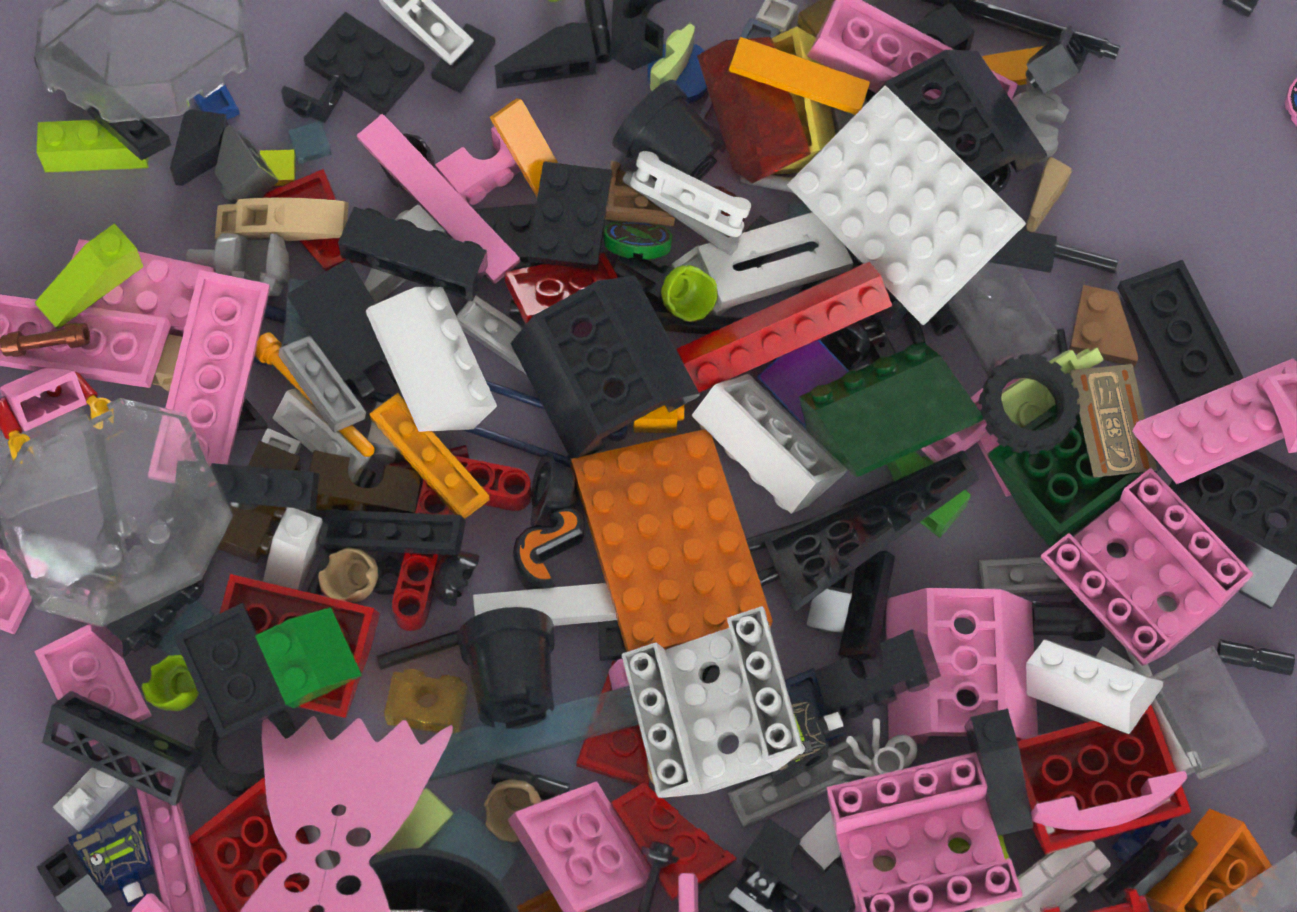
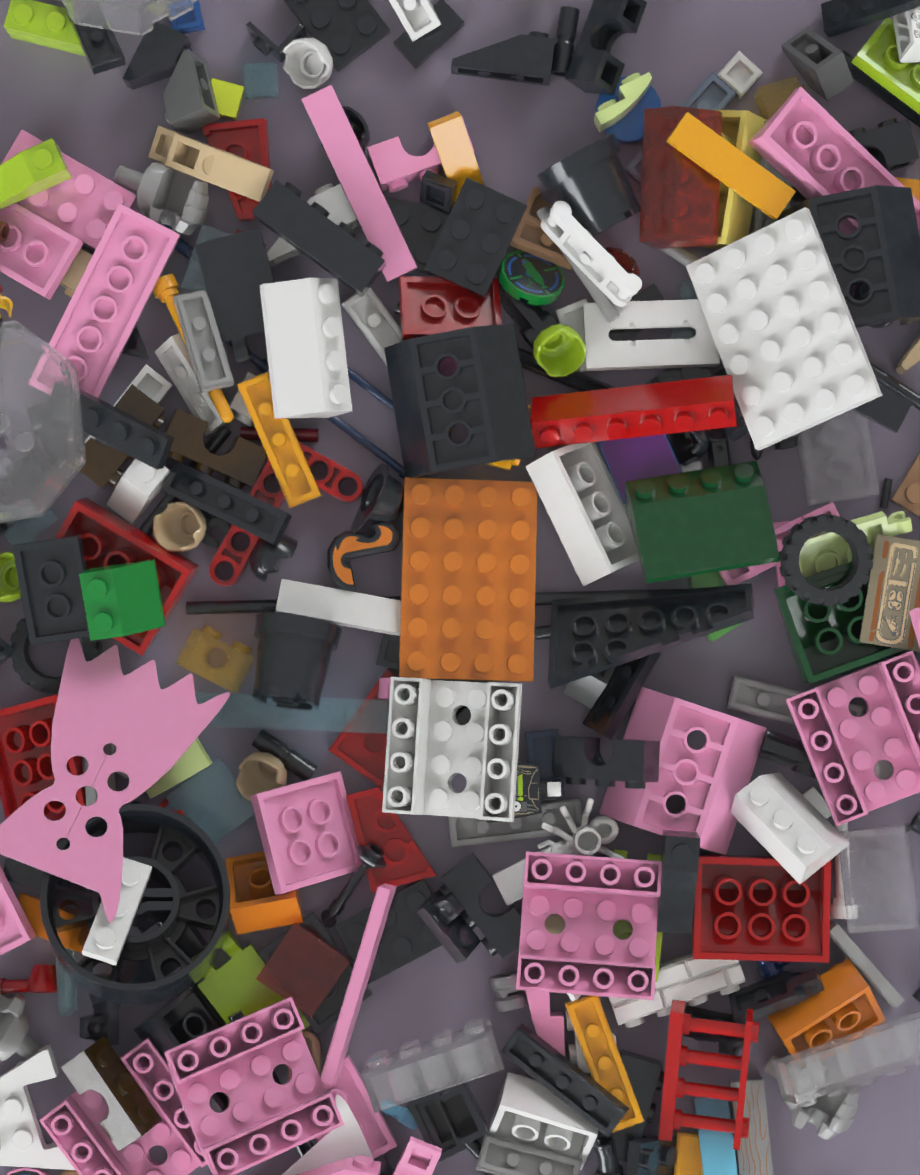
camera: 20 degrees right, 20 degrees up
(351, 108) = (308, 62): none -> white hair
(518, 186) = (438, 191): none -> black tile
(1065, 814) = (802, 942): bright pink slope -> none
(1204, 798) = (865, 966): none -> light grey tile

